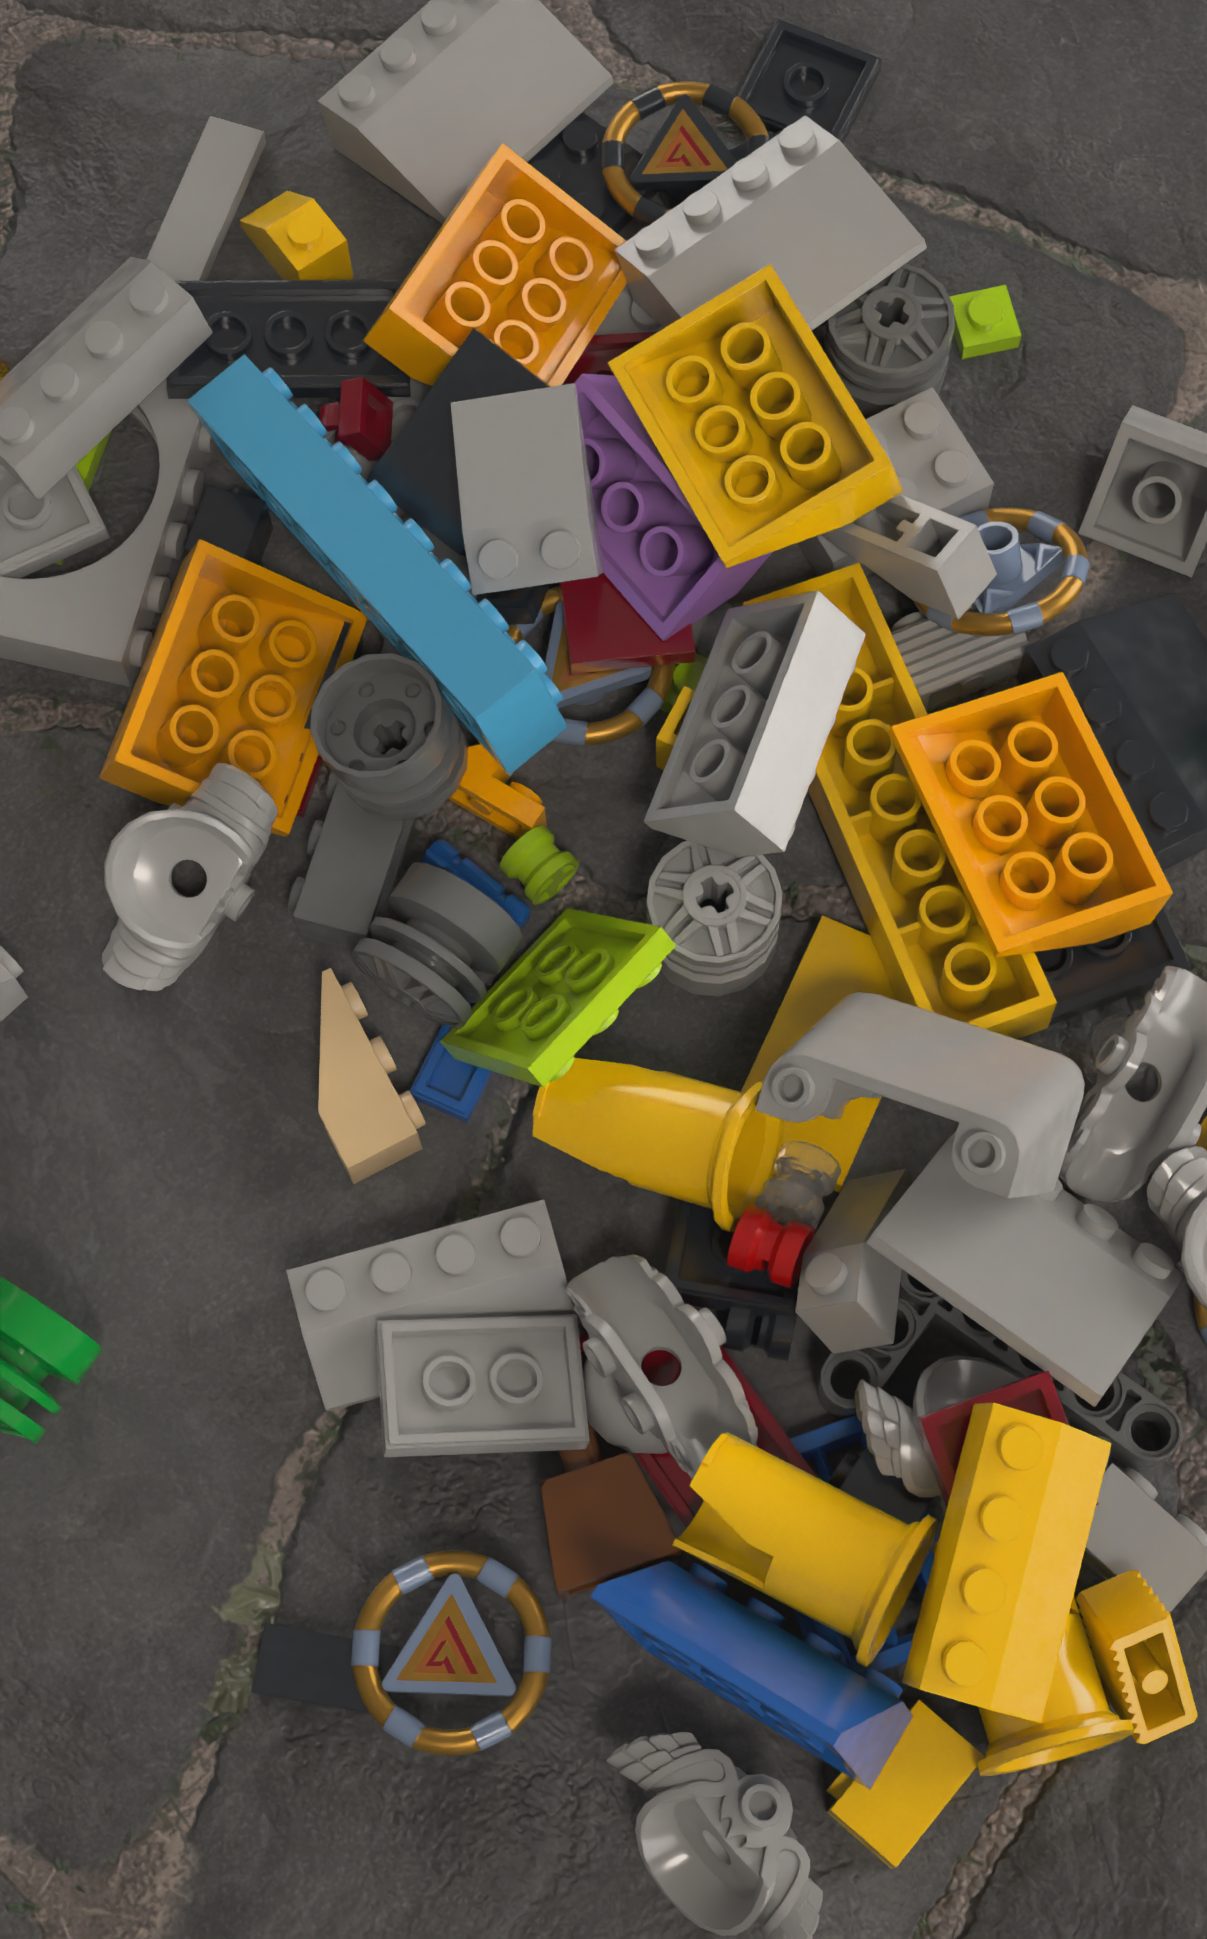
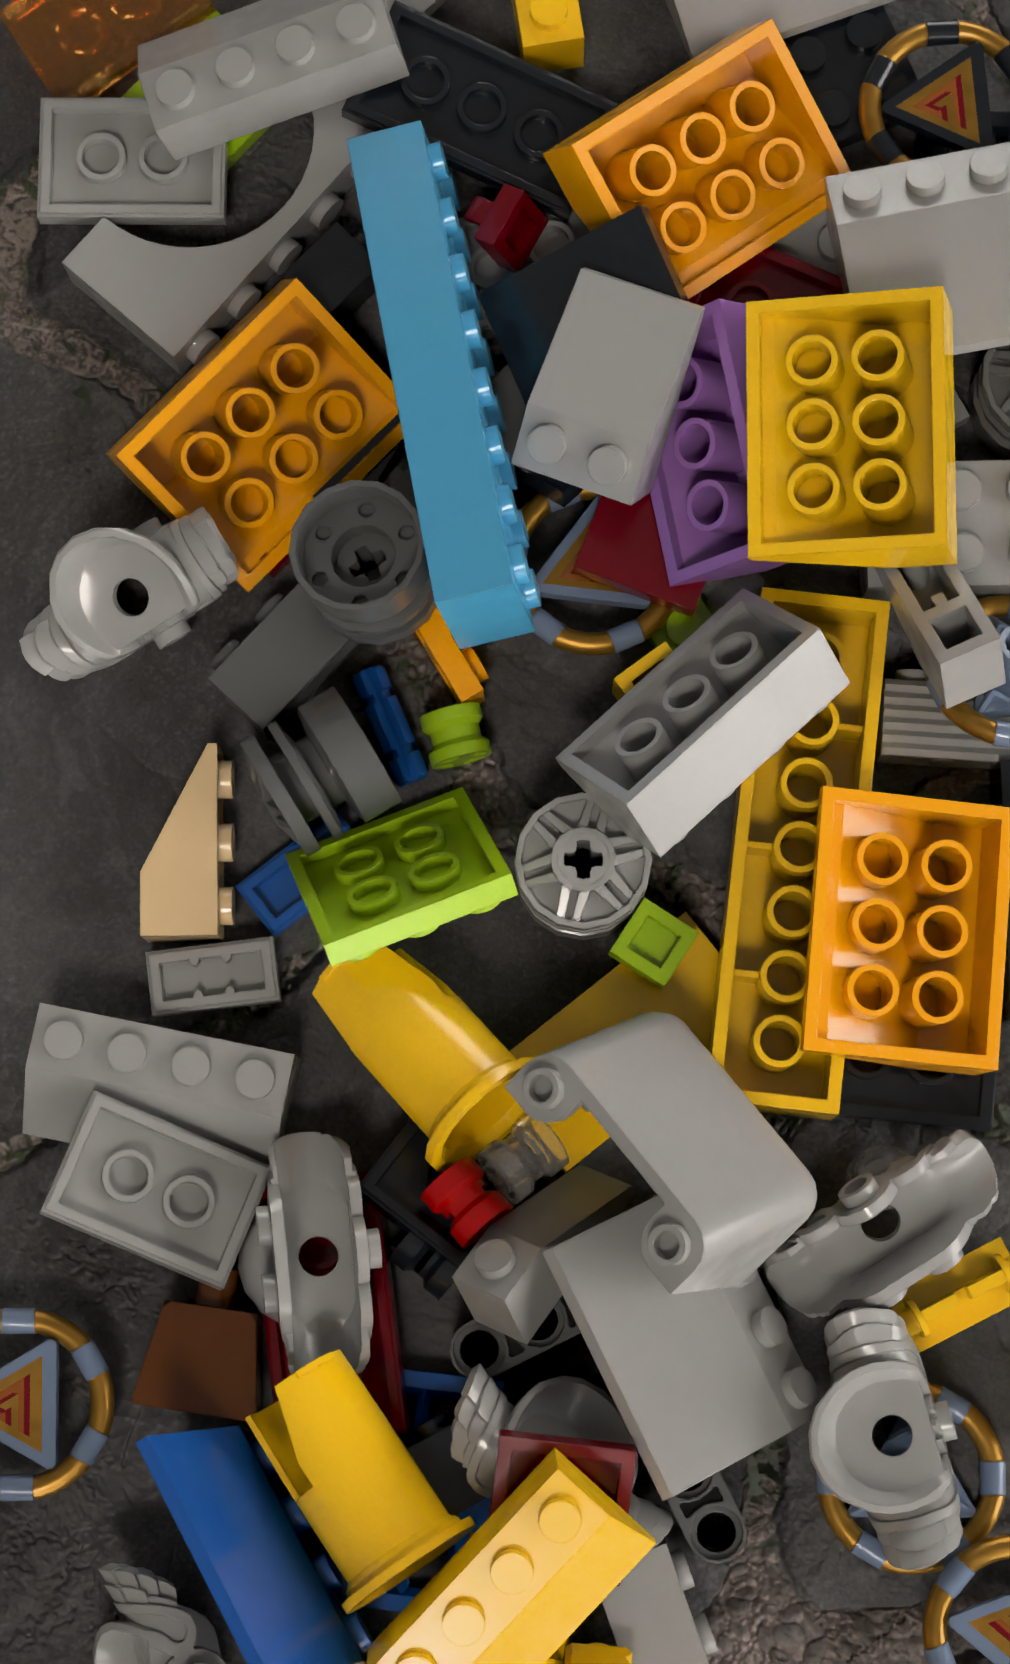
camera: 30 degrees right, 10 degrees up
(431, 1179) = (213, 976): none -> light grey plate
(811, 950) = (653, 943): none -> lime plate

